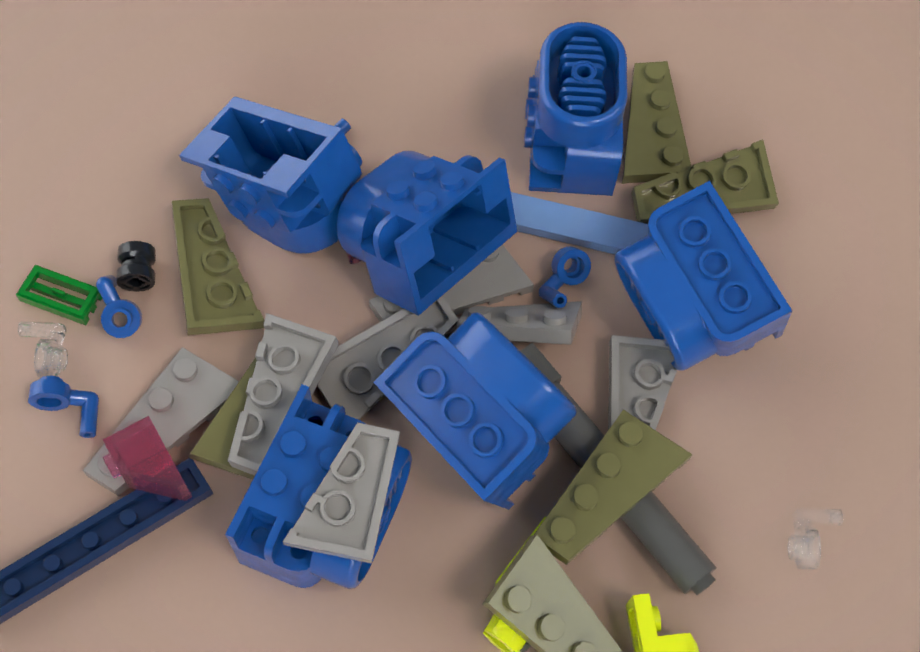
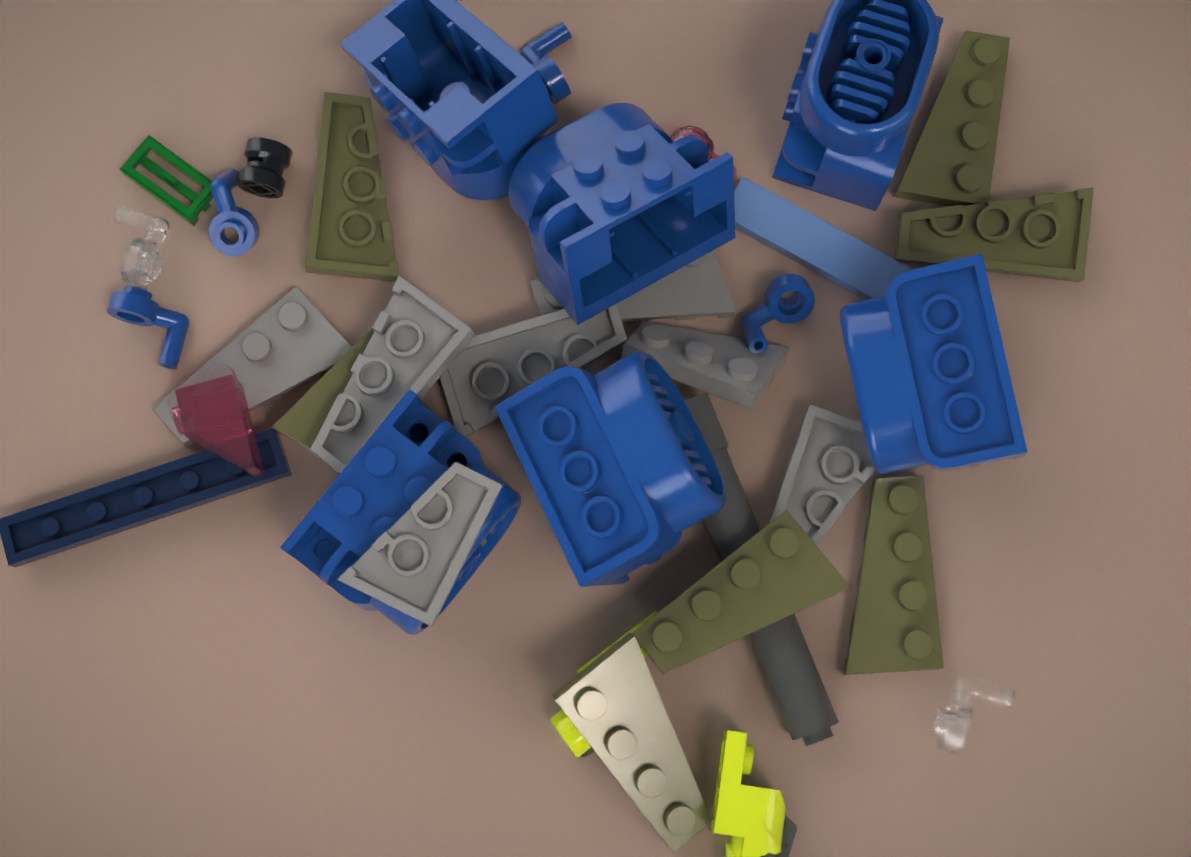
camera: 20 degrees right, 15 degrees up
(725, 464) = (896, 593): none -> olive wing

